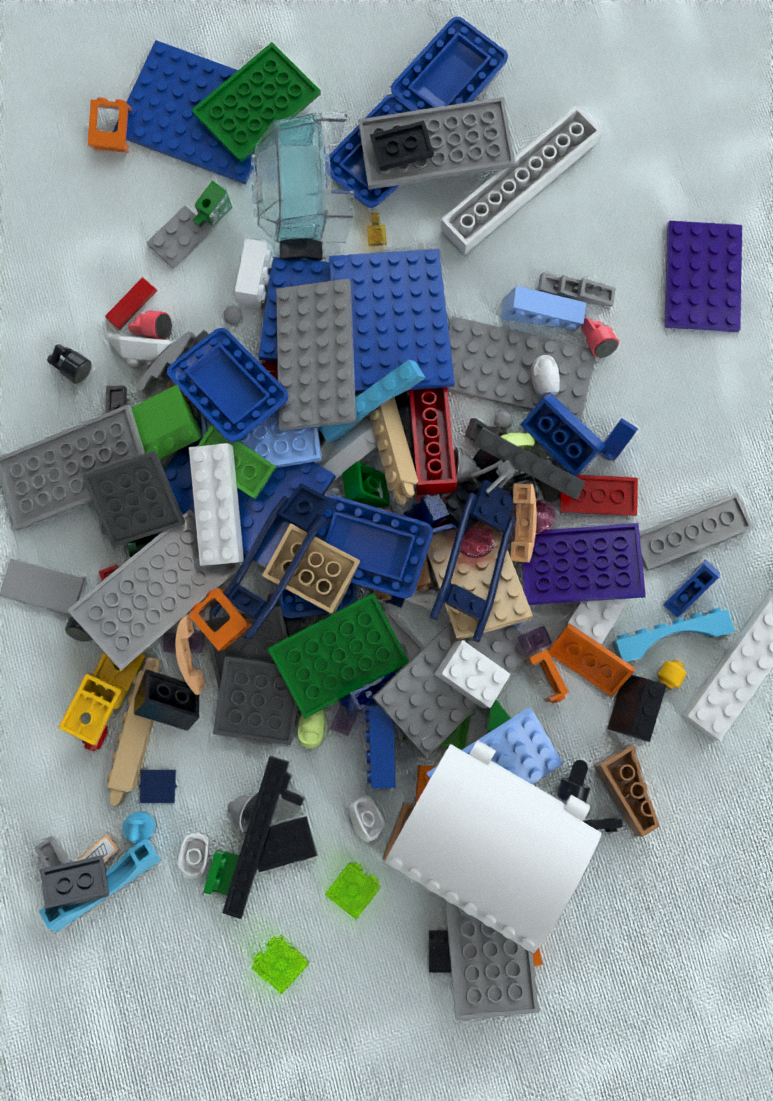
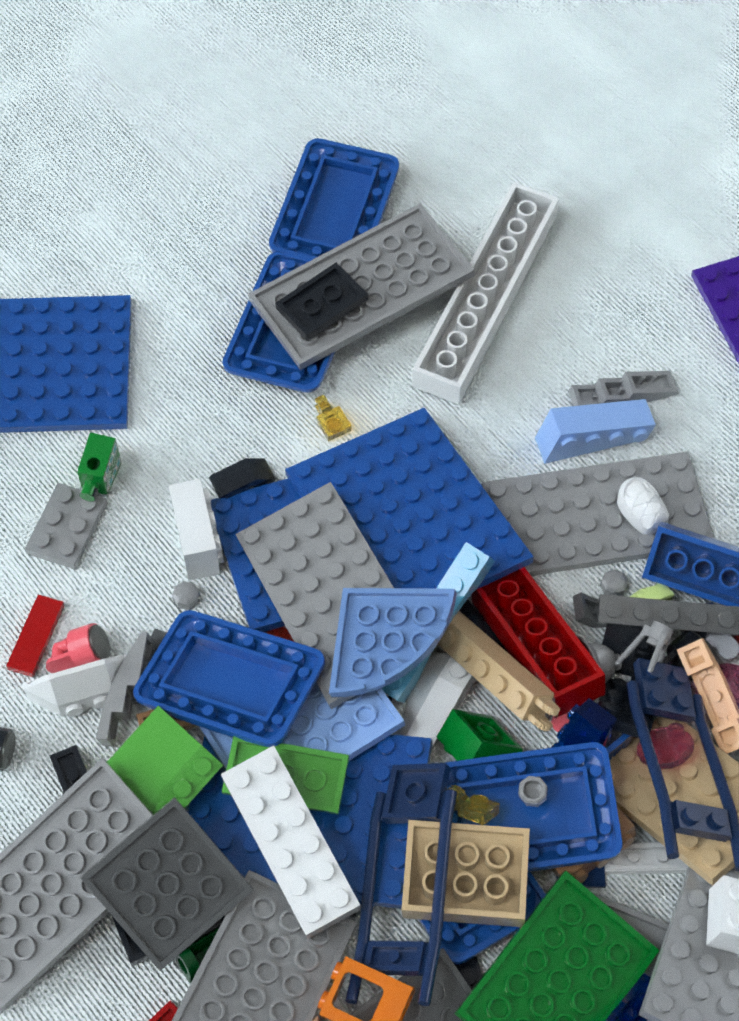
camera: 25 degrees left, 20 degrees down
(253, 97) = (100, 324): green plate -> none
(295, 180) = (207, 393): clear windscreen -> none
(330, 400) = (386, 635): none -> medium blue plate
(334, 532) = (474, 808): none -> clear yellow plate
(375, 537) = (533, 791): none -> light grey tile
(600, 338) = (685, 435): coral piece -> none

